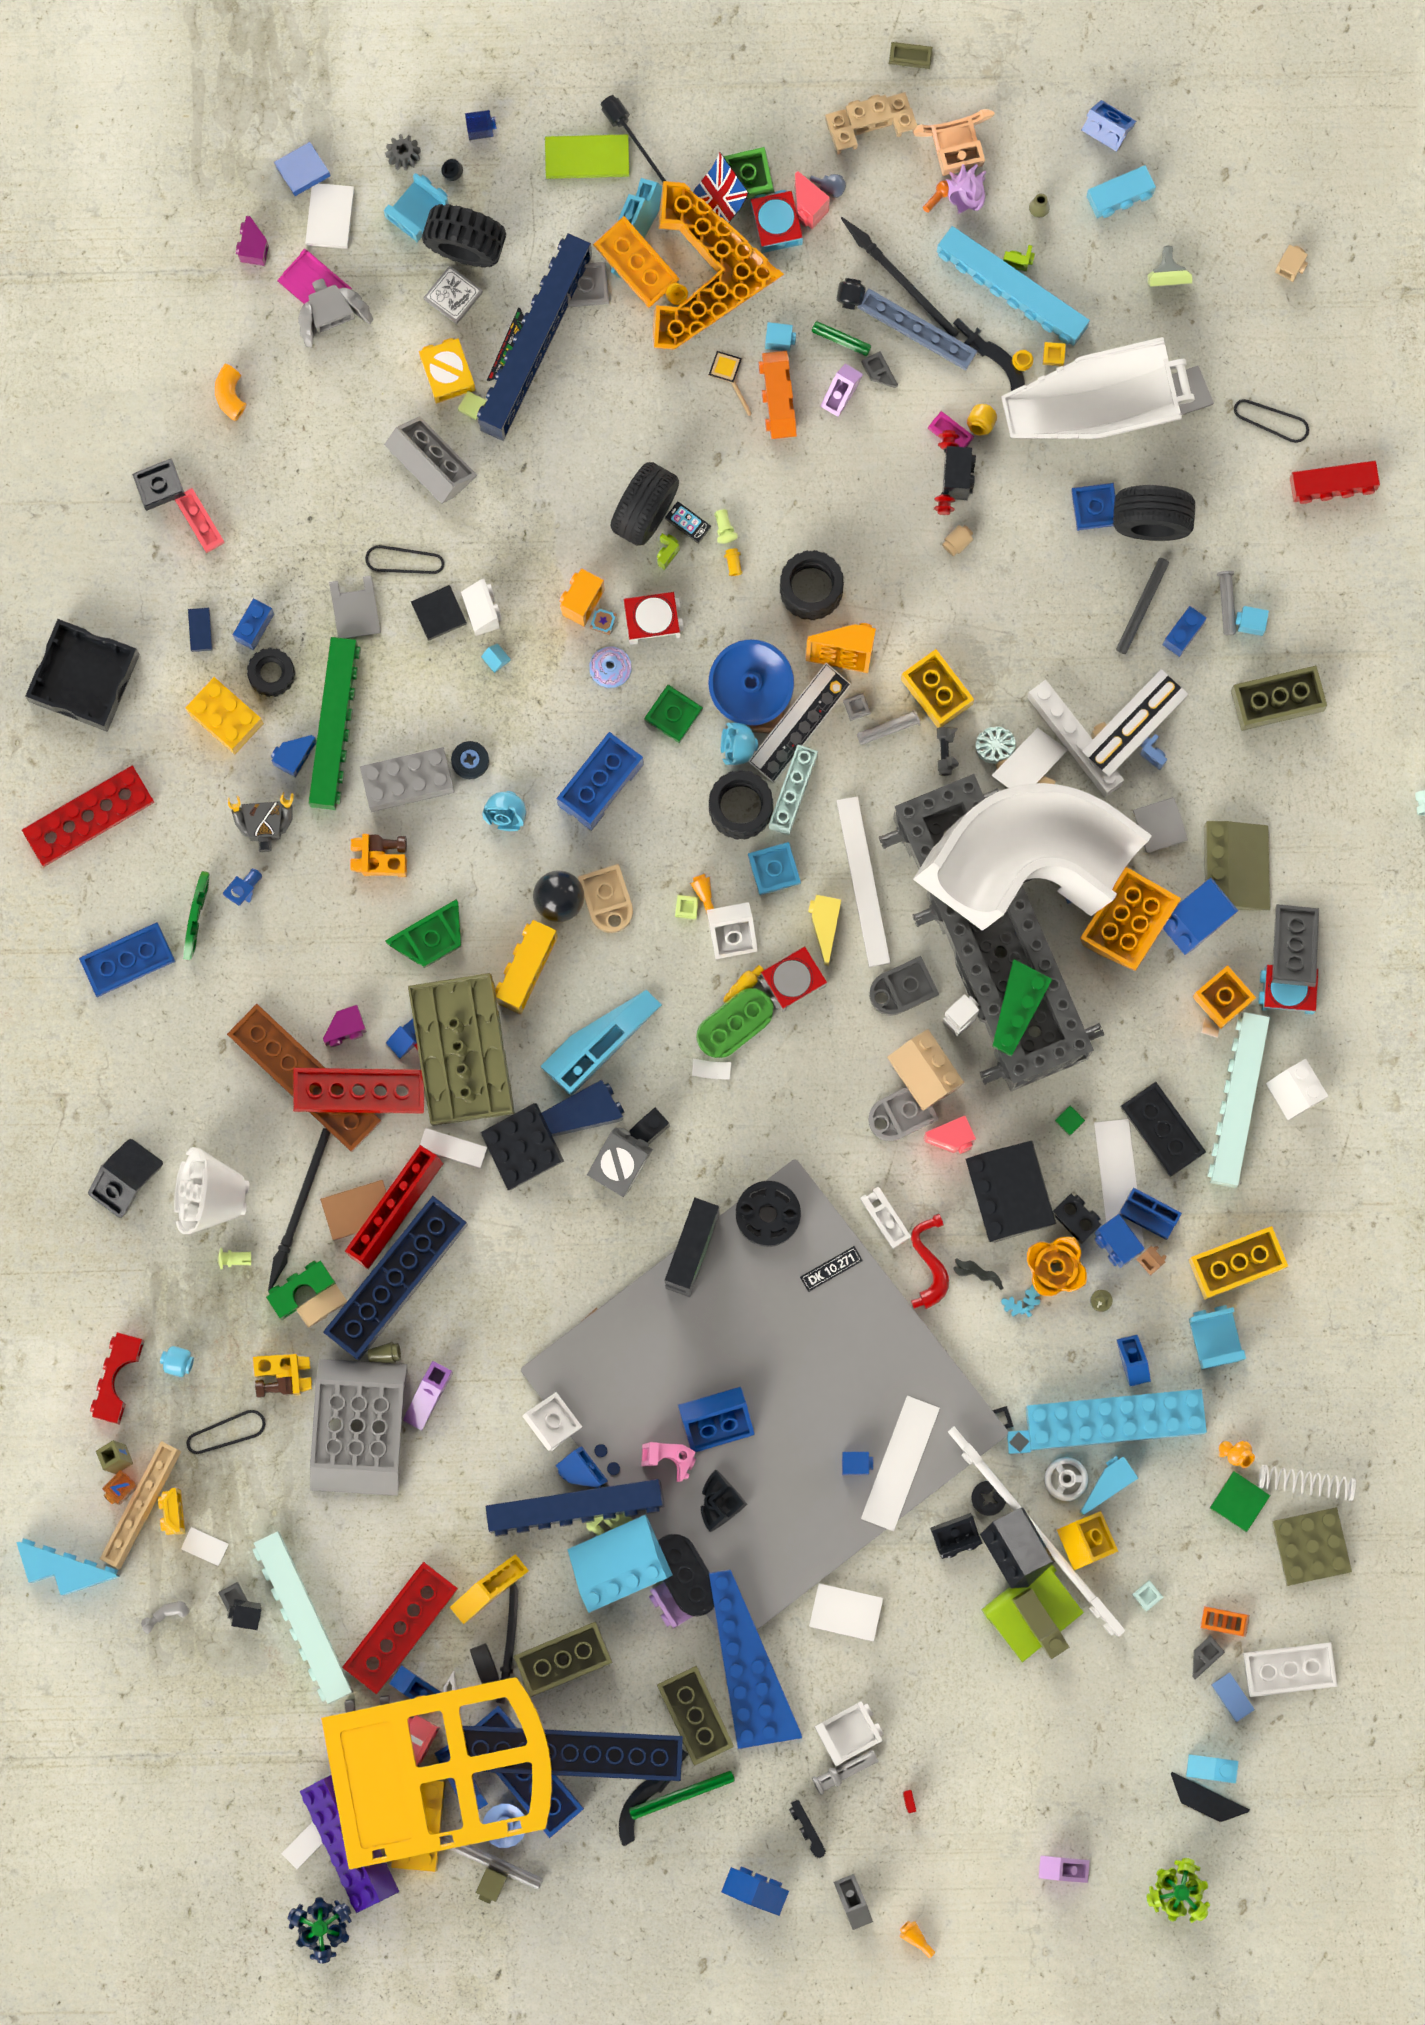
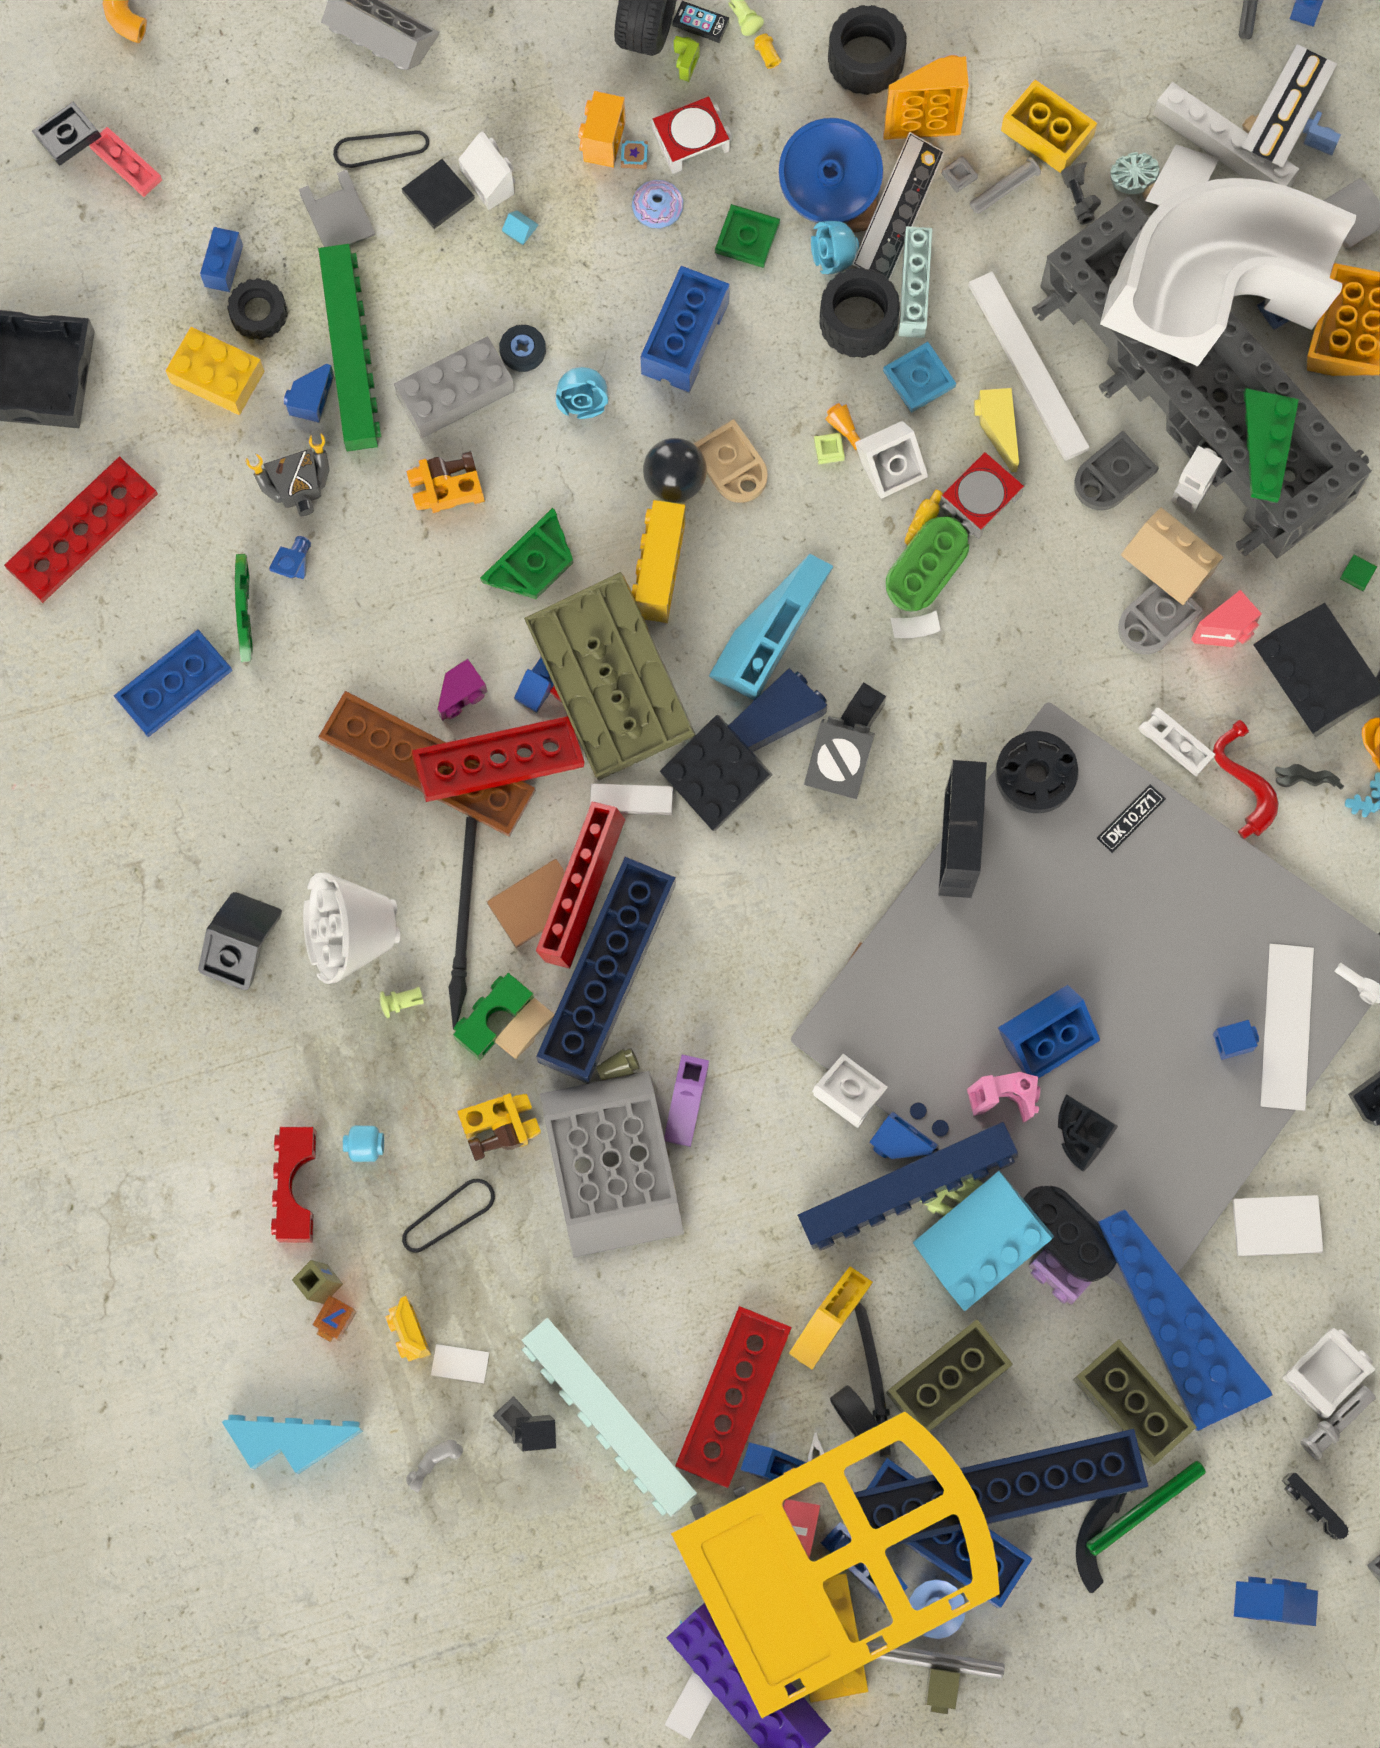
camera: 15 degrees left, 5 degrees down
(140, 1505) = (365, 1333): tan plate -> none
(200, 629) = (159, 284): dark blue tile -> none

